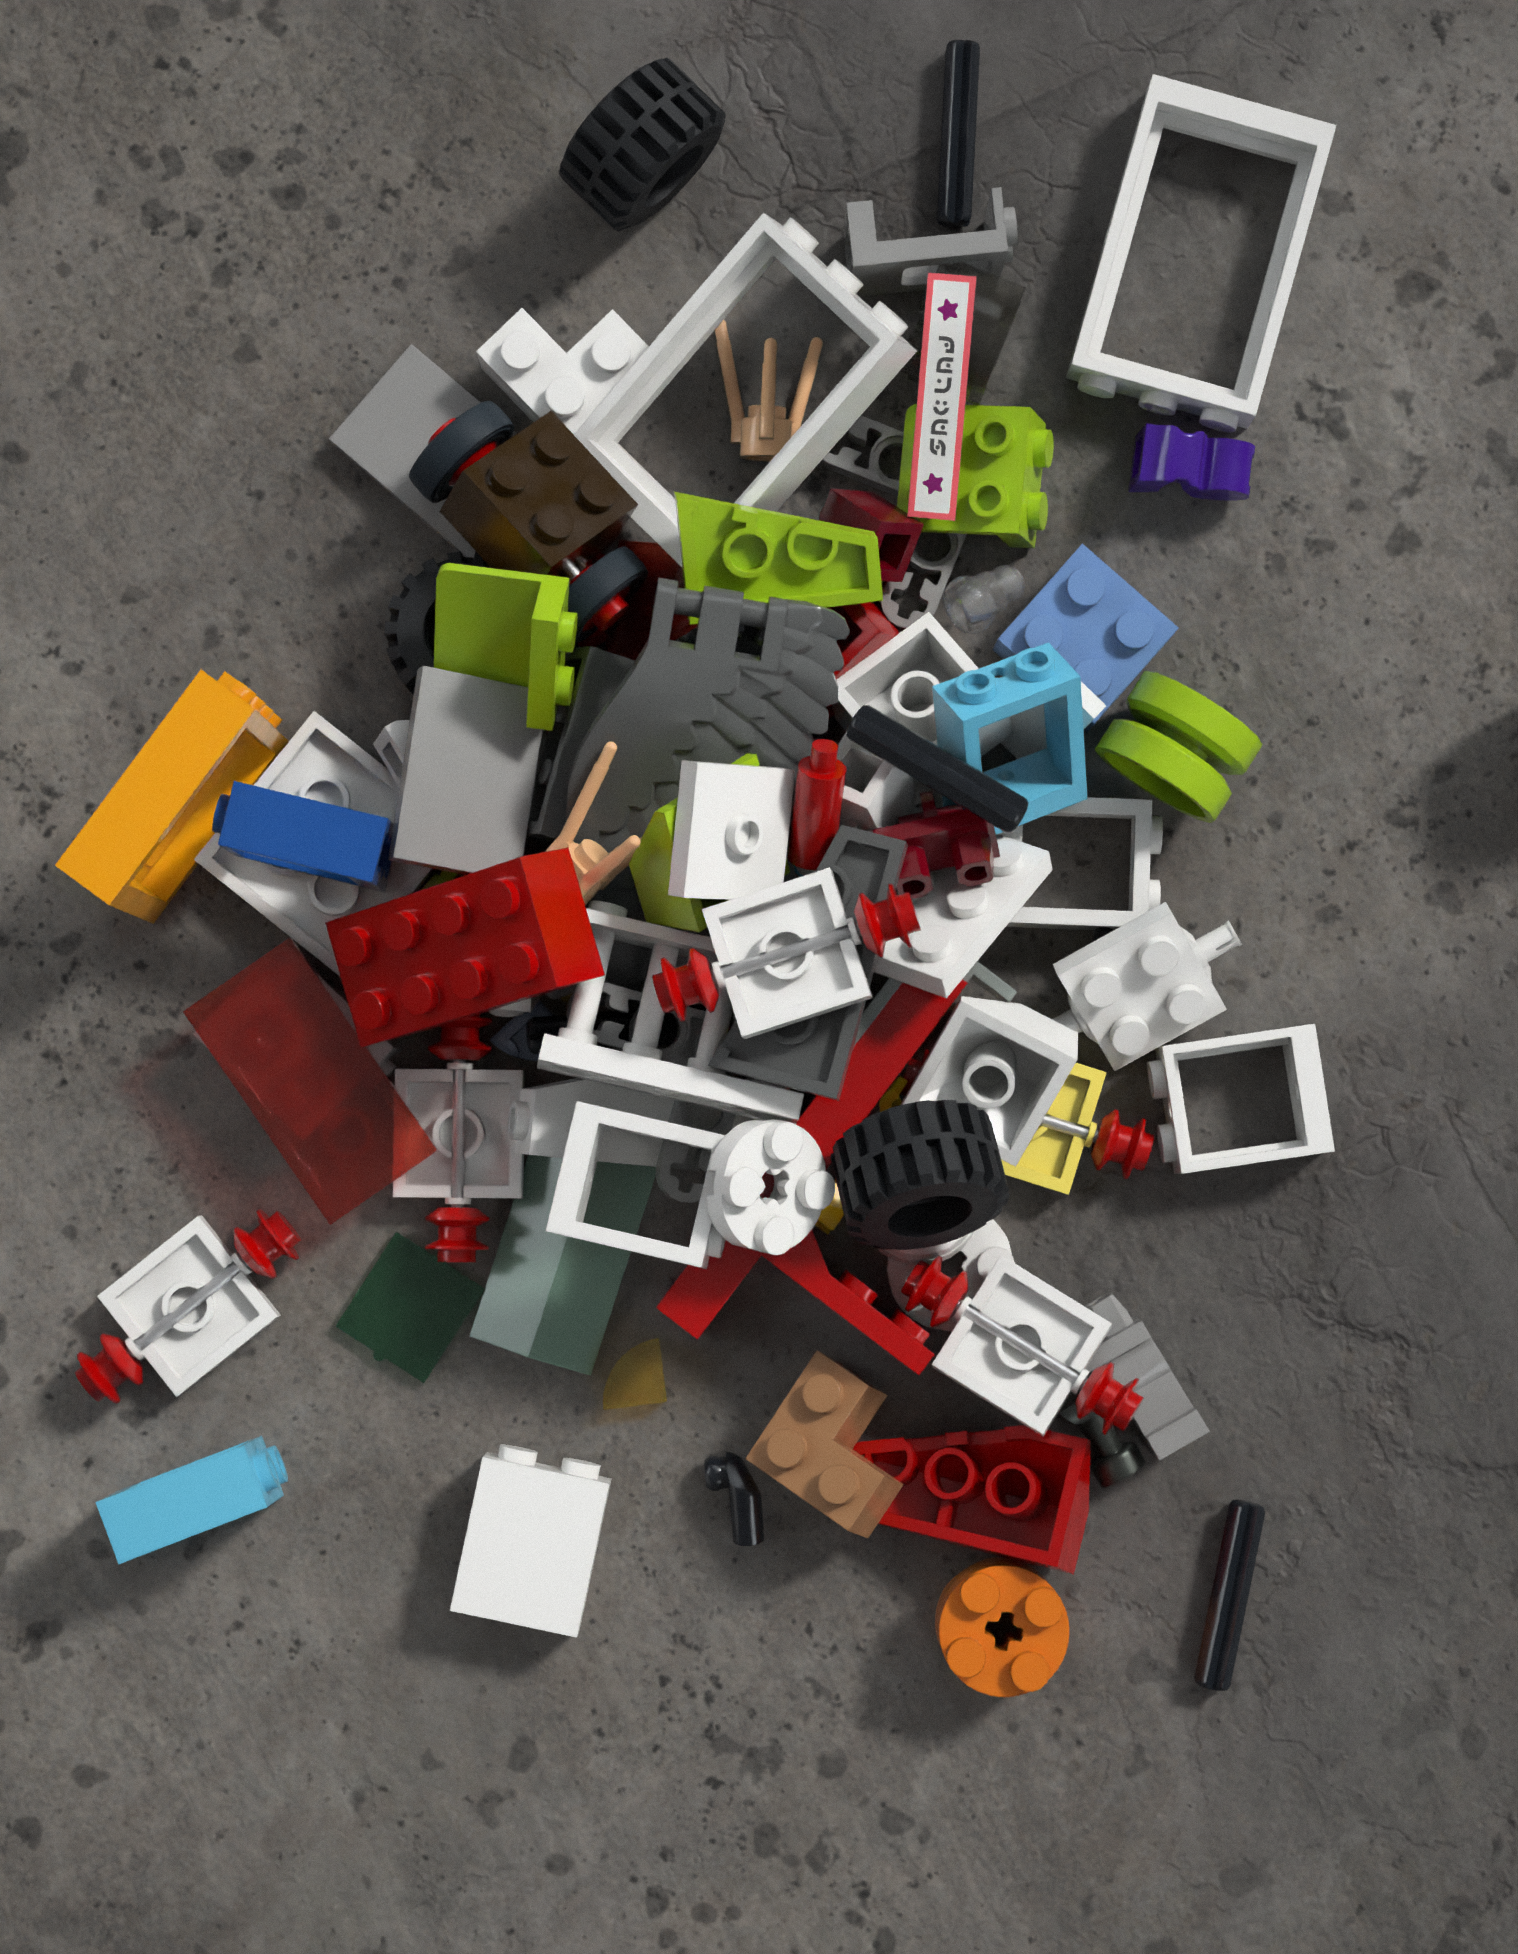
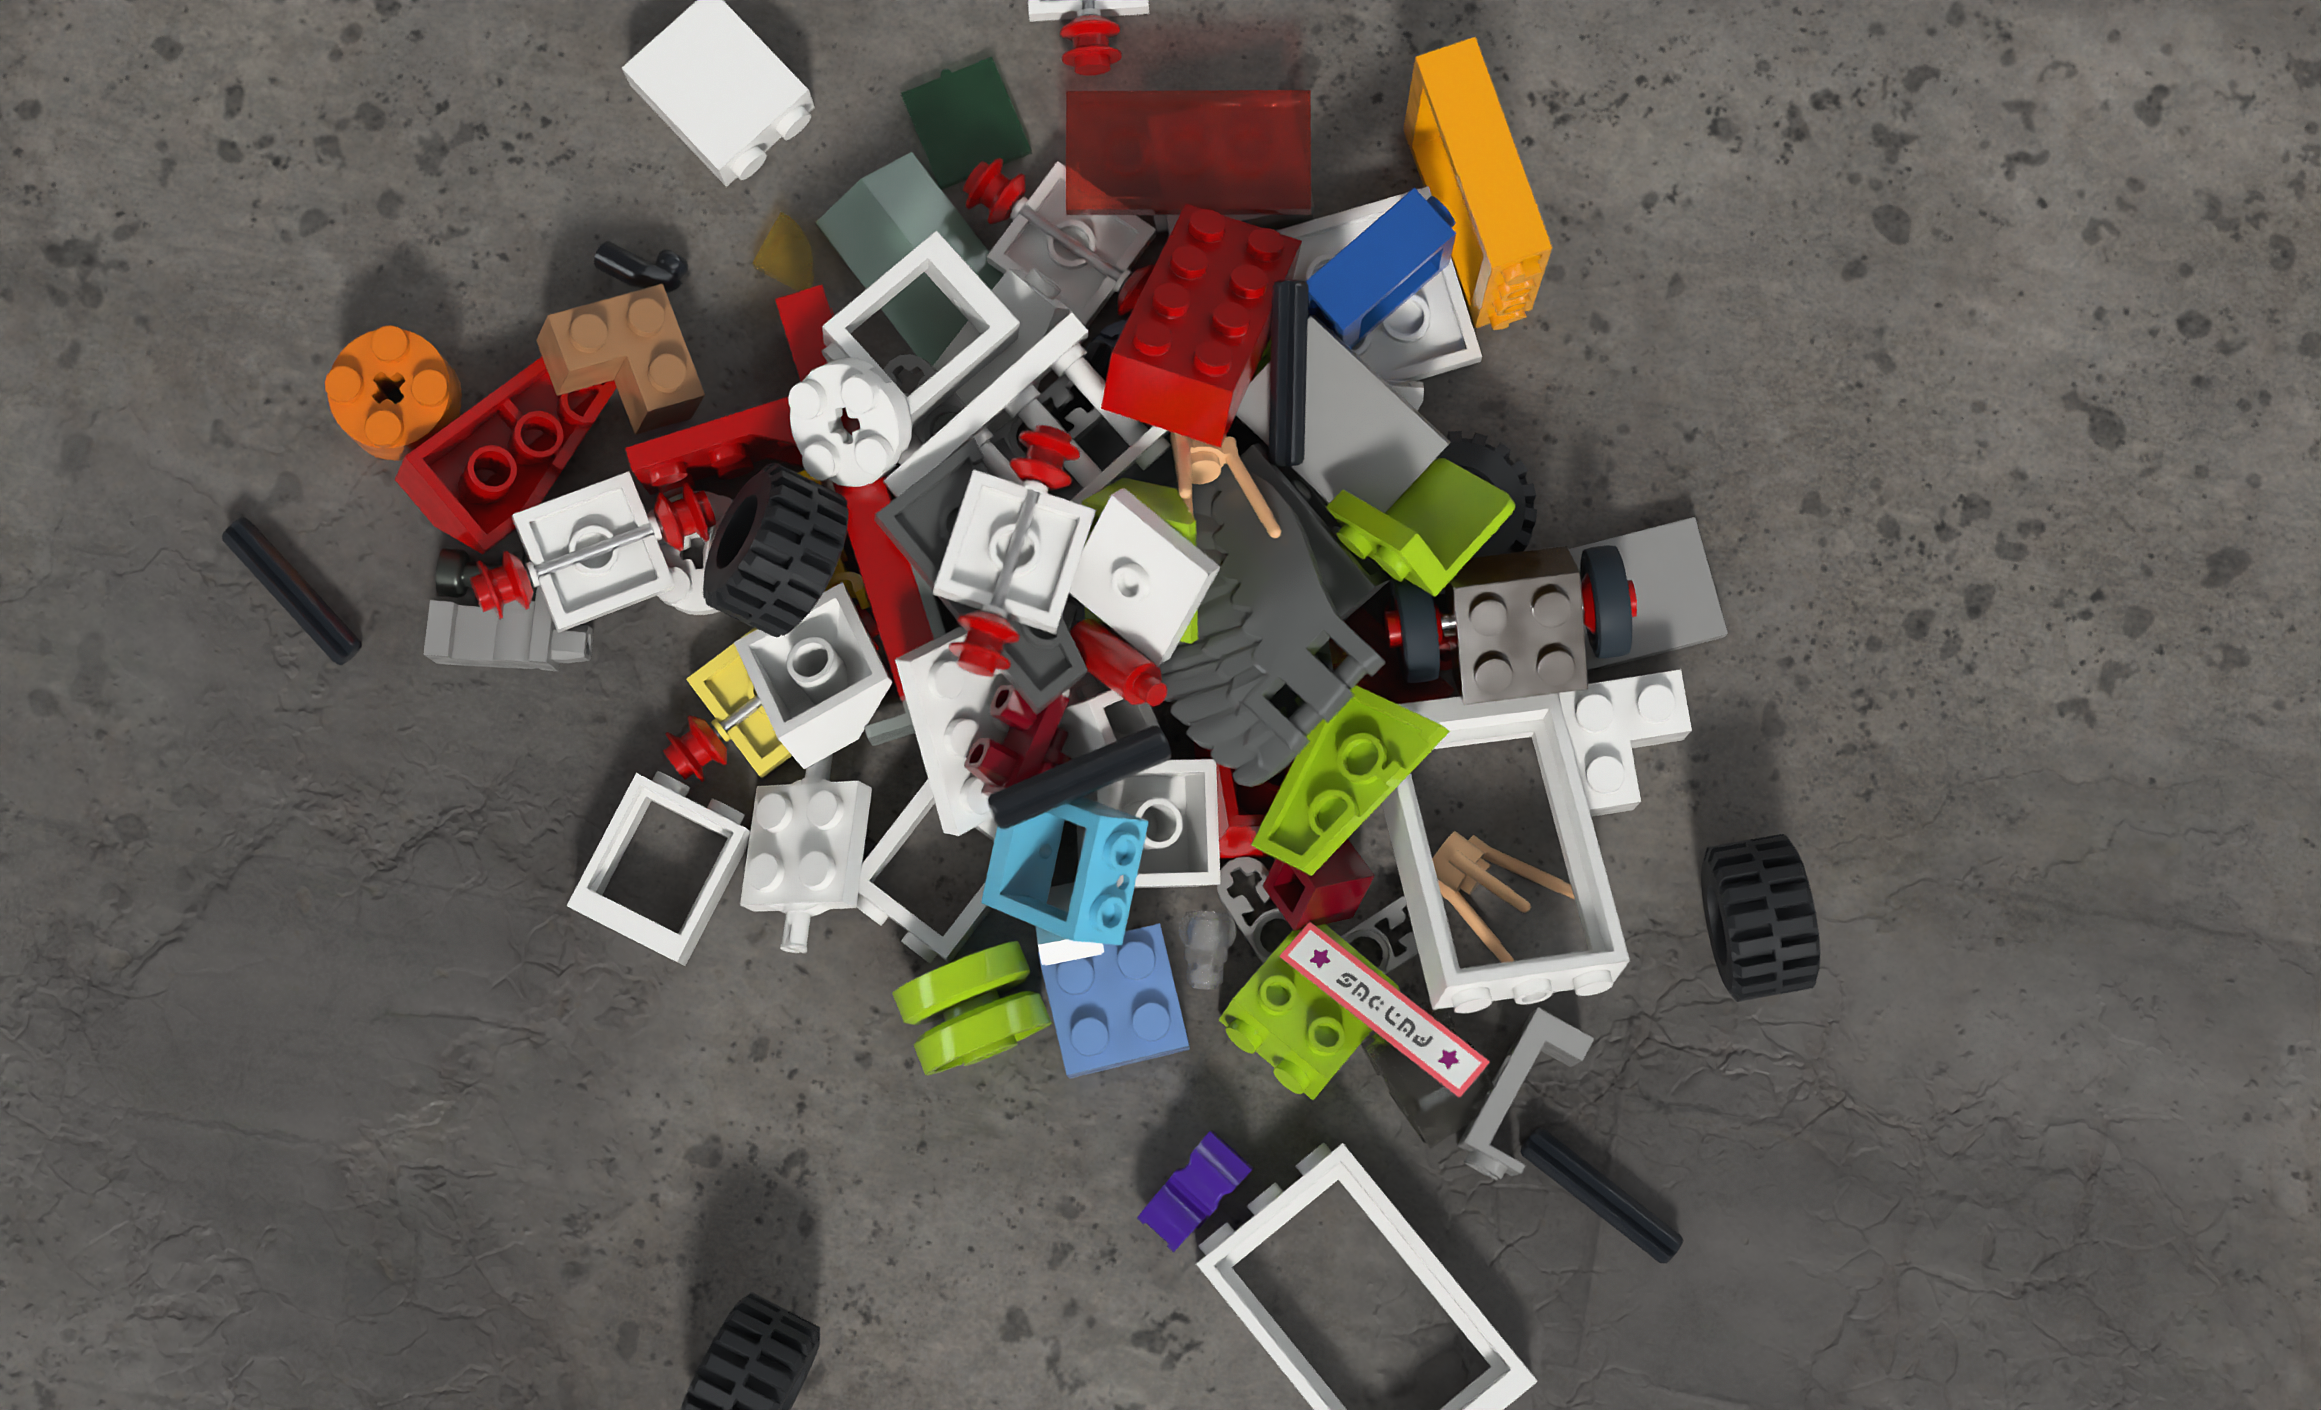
camera: 135 degrees right, 5 degrees down
(456, 843) = (1288, 372): none -> black axle

